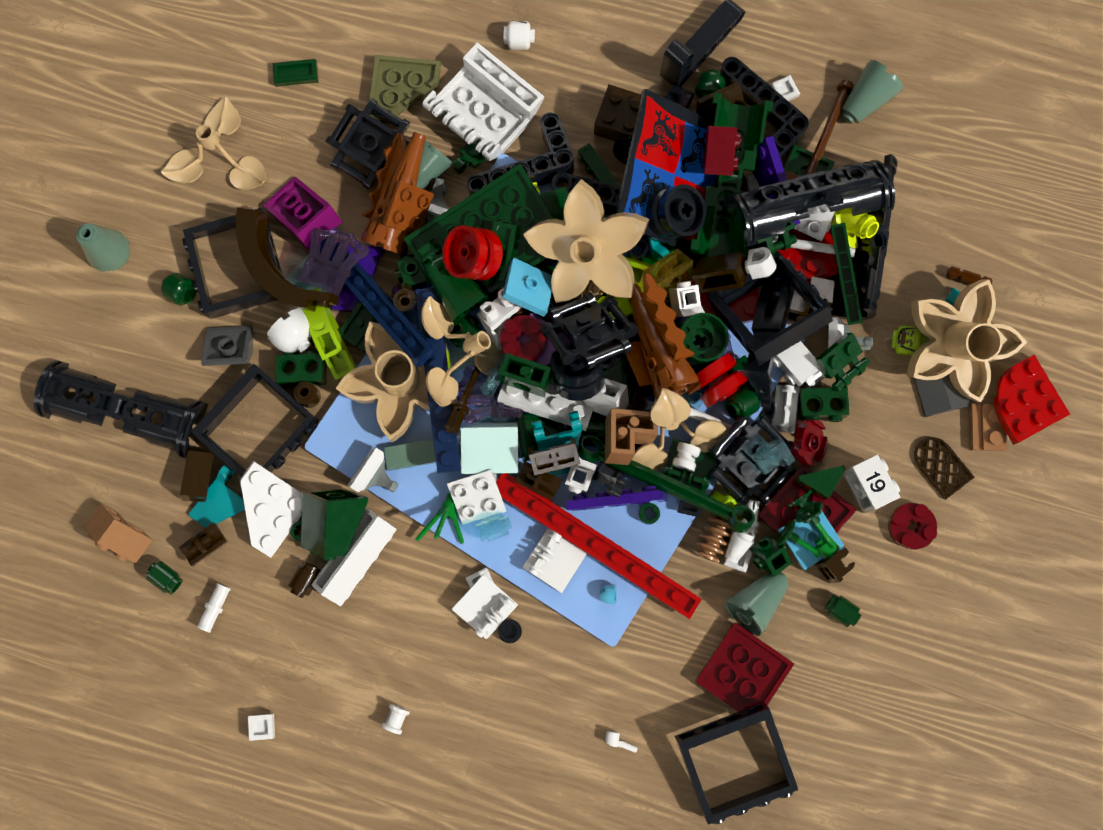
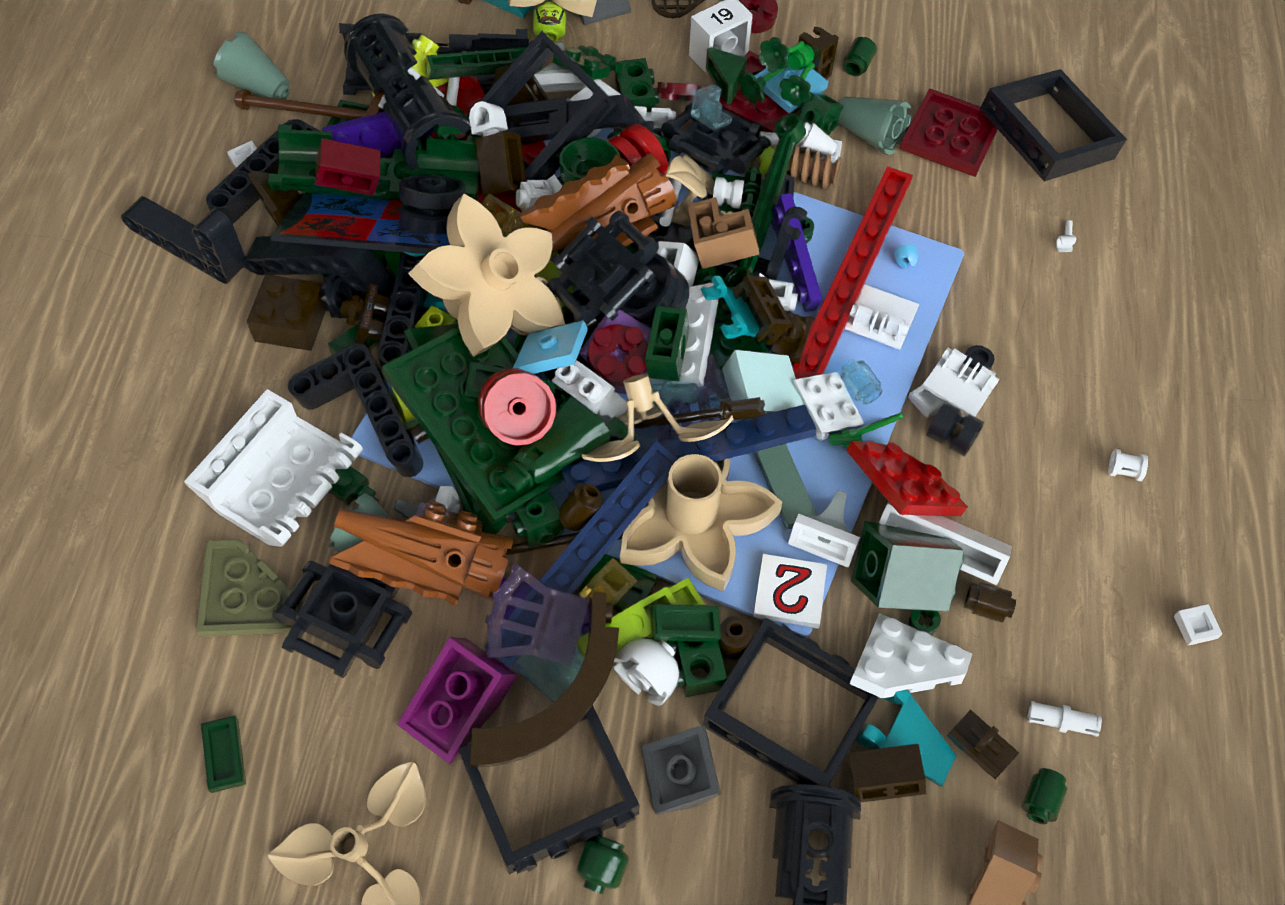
camera: 105 degrees left, 20 degrees down
(314, 358) = (685, 622): none -> dark green tile
(335, 440) = (790, 591): none -> white tile
(349, 311) = (612, 580): none -> clear yellow brick
(401, 539) = (906, 481): none -> red plate
(444, 591) = (946, 422): none -> black wheel
(519, 35) = (167, 448): white head -> none
(614, 173) = (373, 304): none -> dark brown hips
(709, 82) = (247, 223): dark green piece -> none

